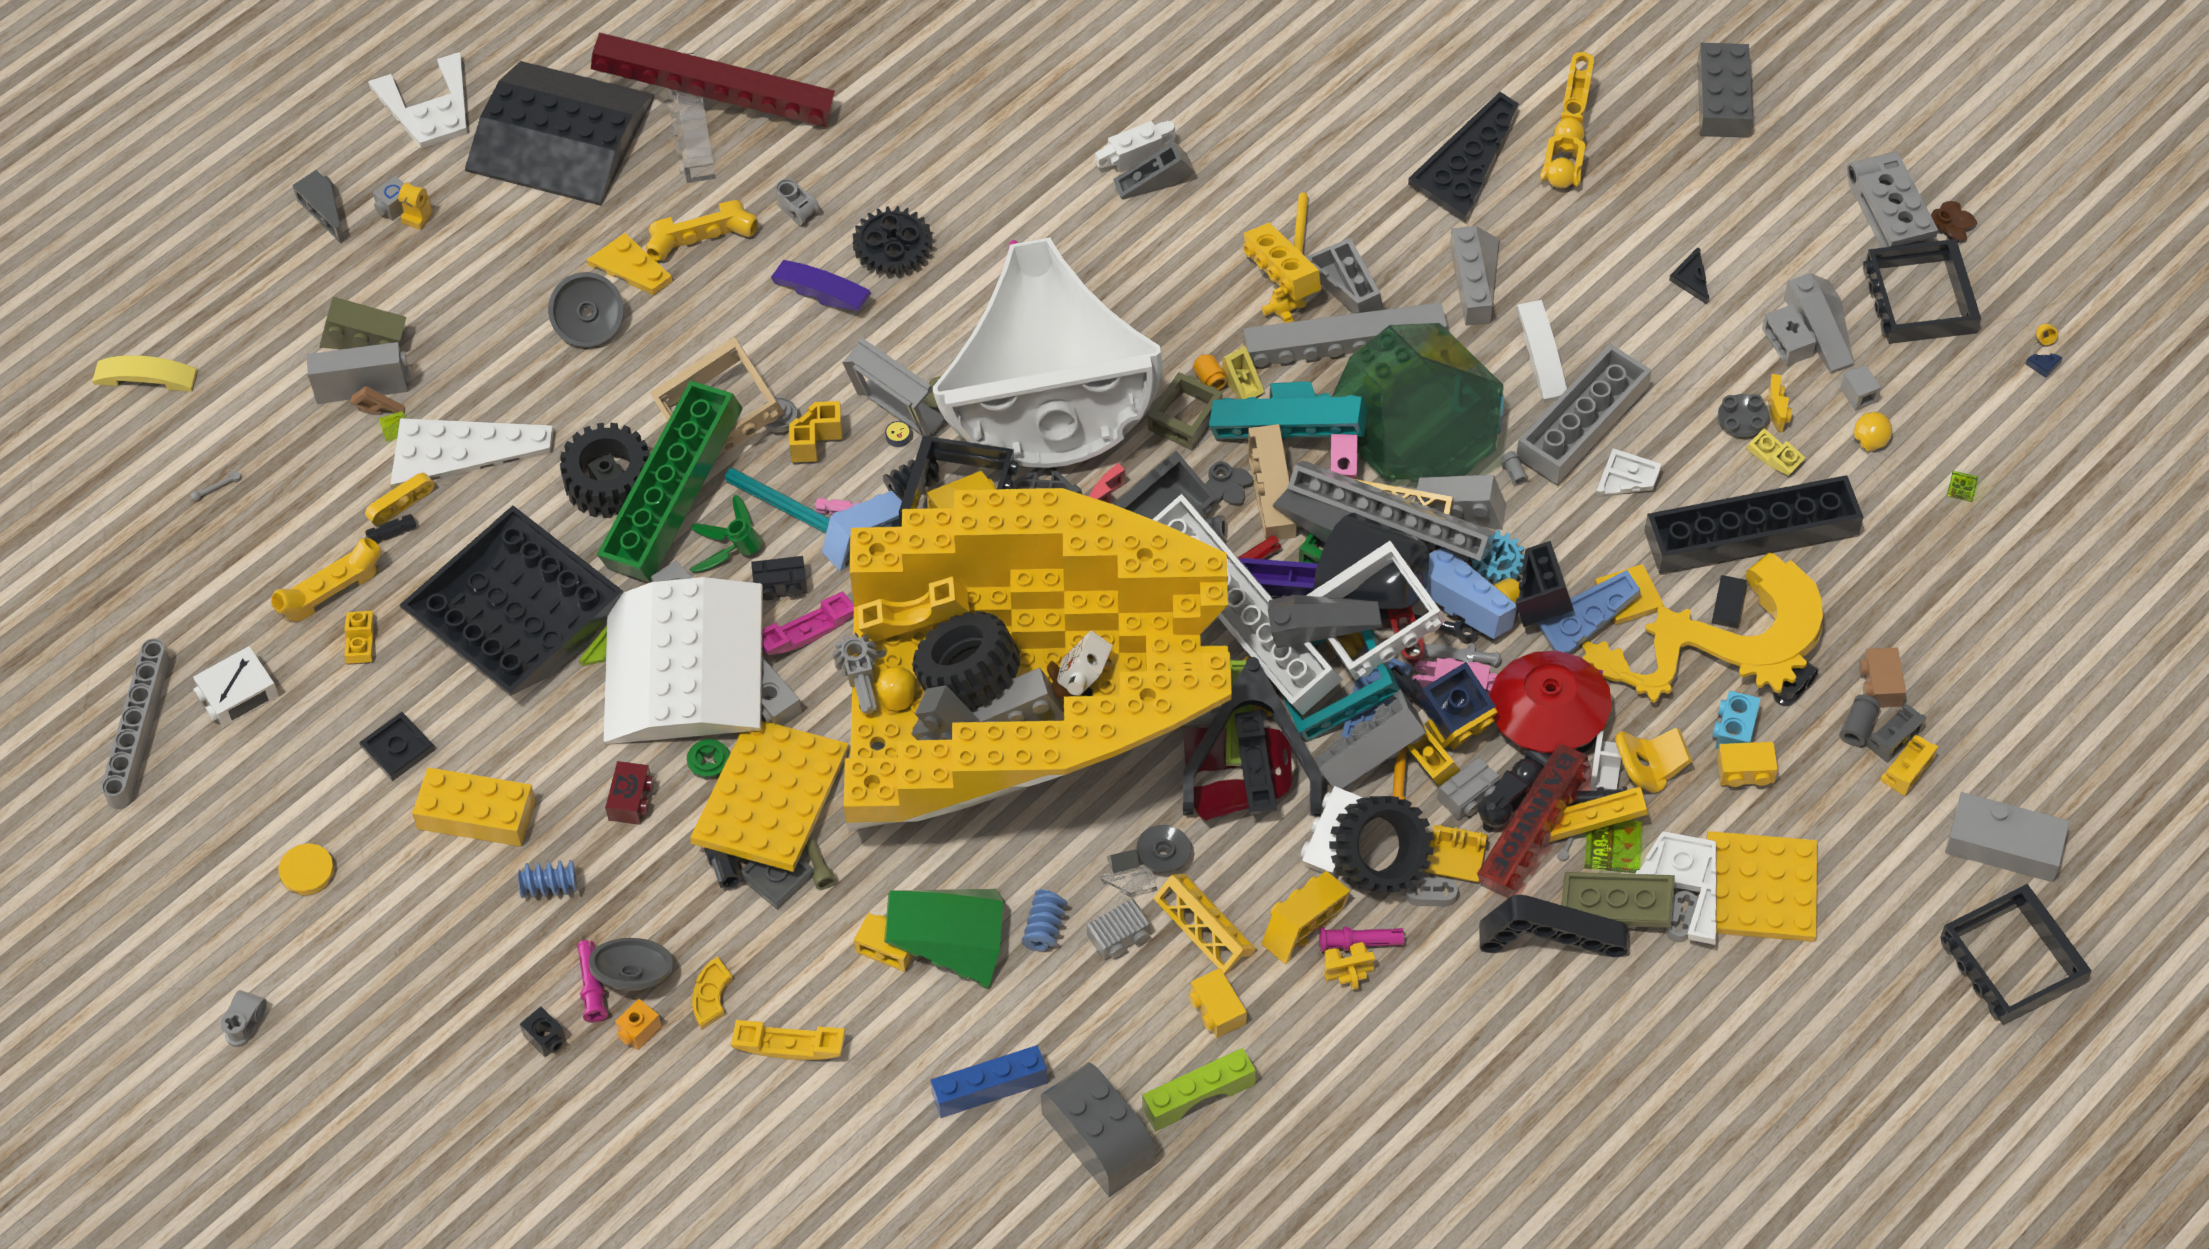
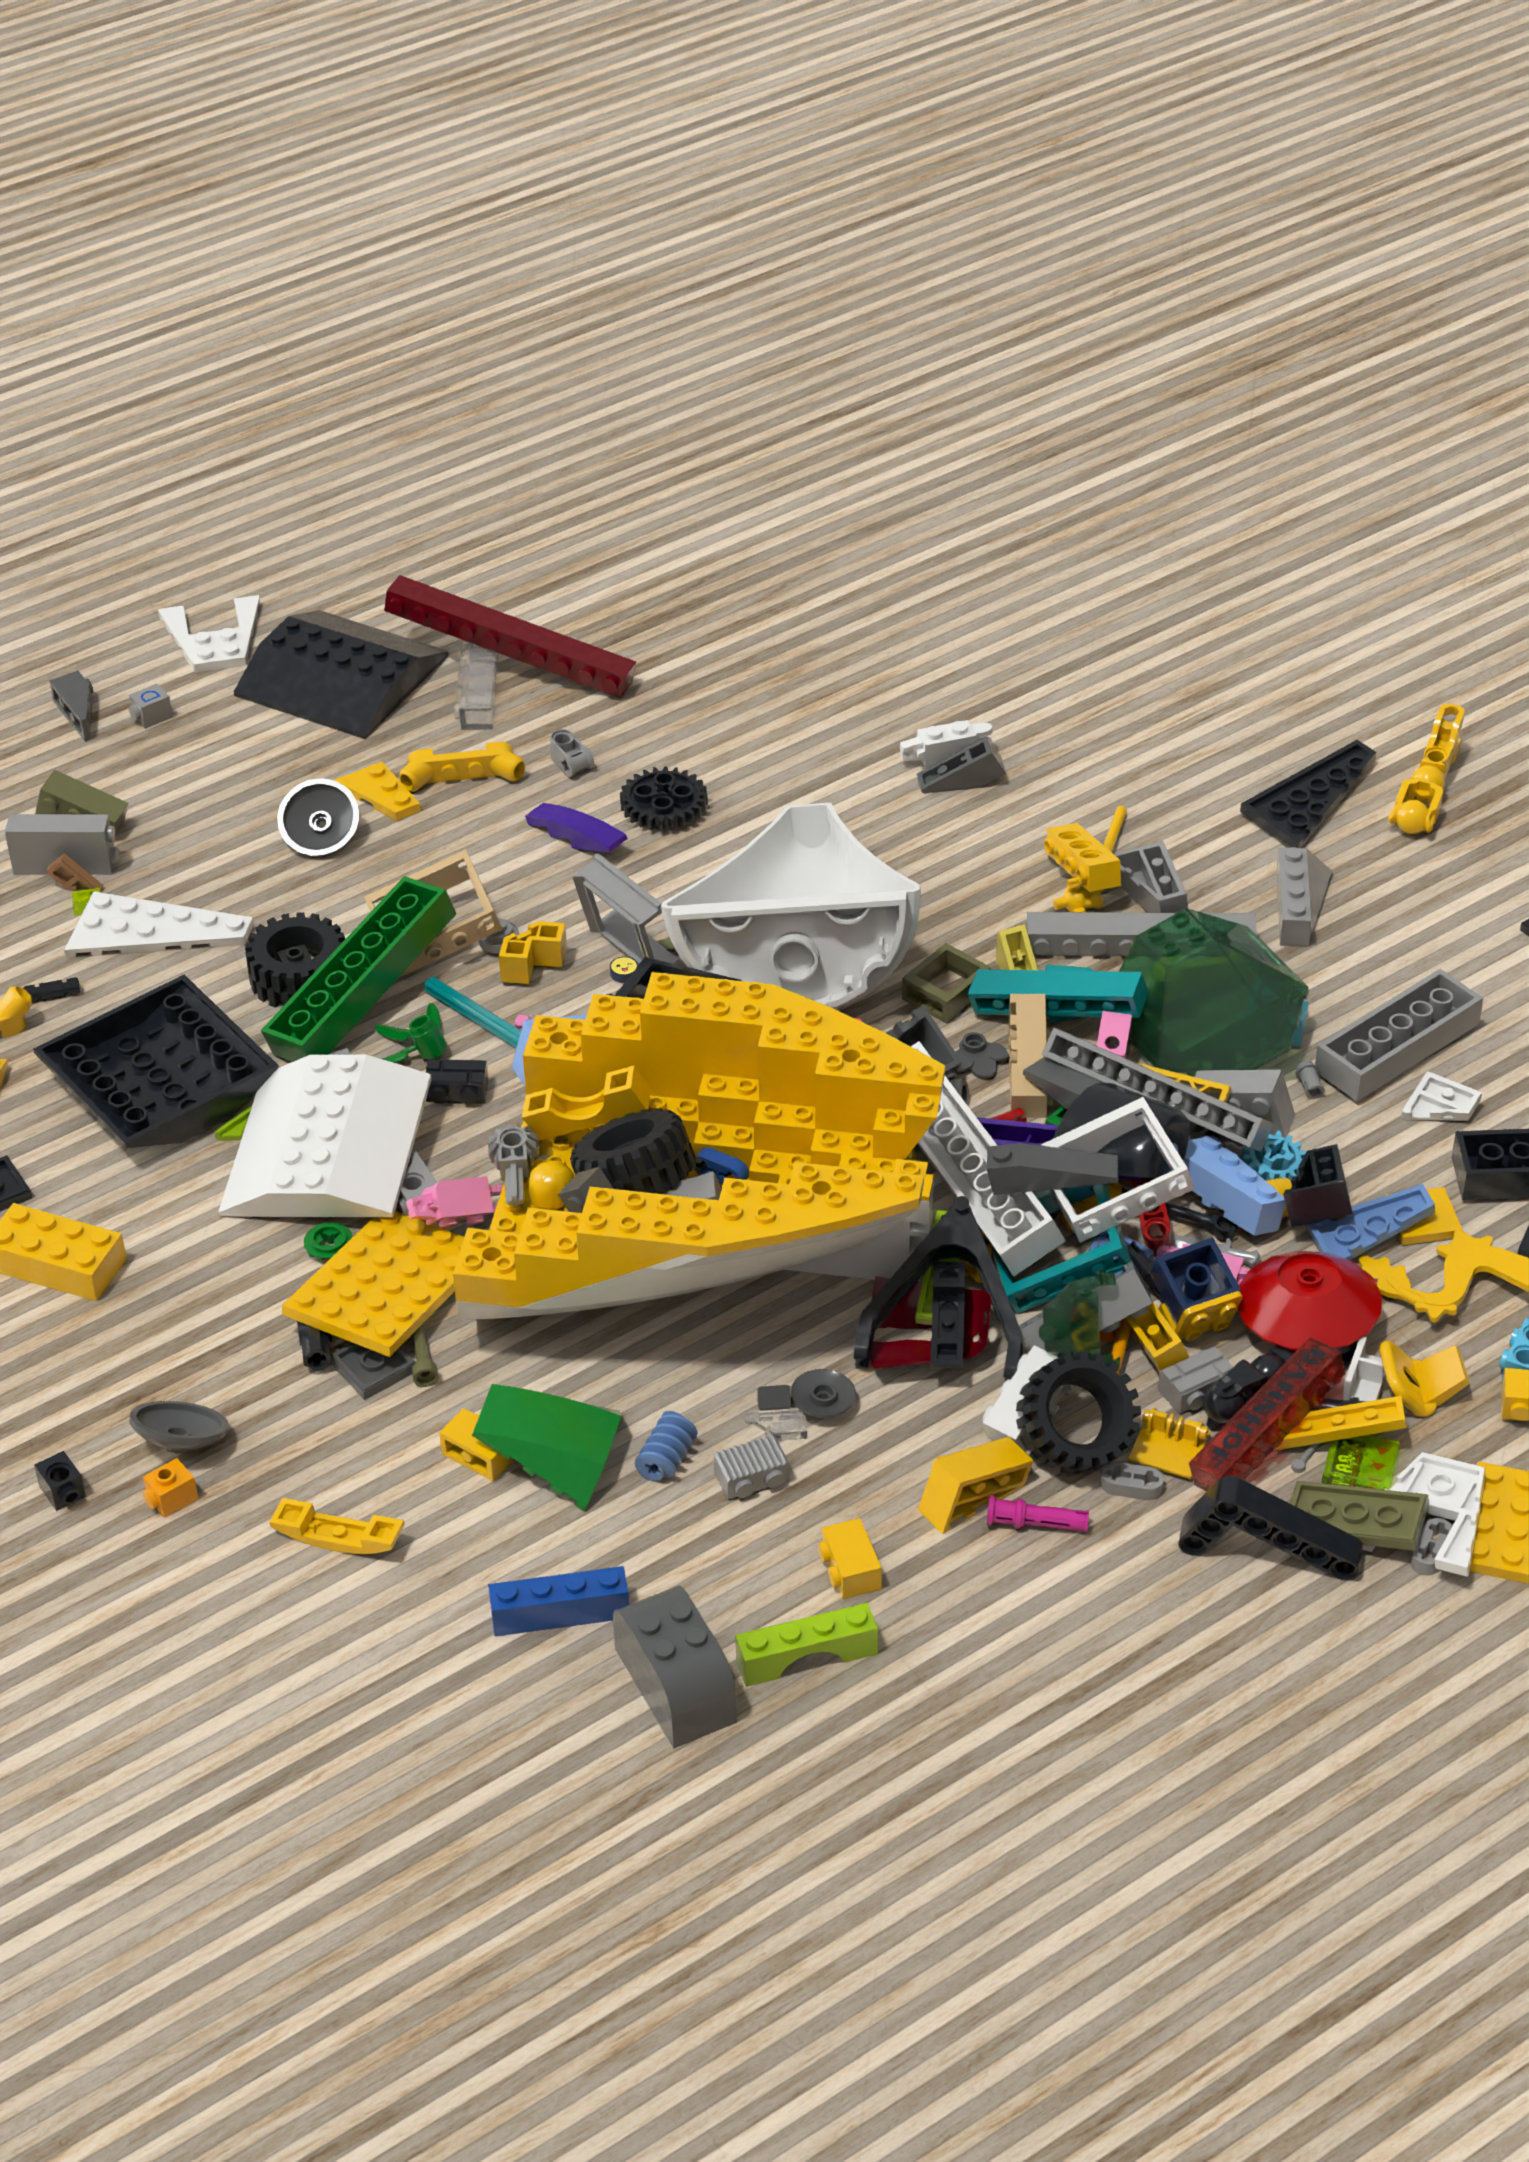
camera: 10 degrees right, 15 degrees down
(408, 493) = (86, 950): yellow beam -> none
(415, 205) = (170, 711): yellow leg -> none
(546, 879) = (112, 1332): medium blue piece -> none
(592, 991) = (128, 1449): dark pink pin -> none
(629, 793) = (229, 1261): dark red brick -> none
(708, 992) = (259, 1472): yellow tile -> none
(808, 628) = (469, 1134): dark pink slope -> none
(812, 707) = (455, 1202): none -> bright pink hinge
(1039, 650) = (721, 1163): none -> blue beam
(1076, 670) = (781, 1156): white torso -> none
(1209, 371) = (982, 948): light orange brick -> none
(1212, 917) = (863, 1469): yellow fence -> none
(1350, 968) = (1016, 1542): yellow hips -> none
(1364, 762) = (1073, 1318): none -> clear green torso
(1542, 350) = (1361, 968): white slope -> none

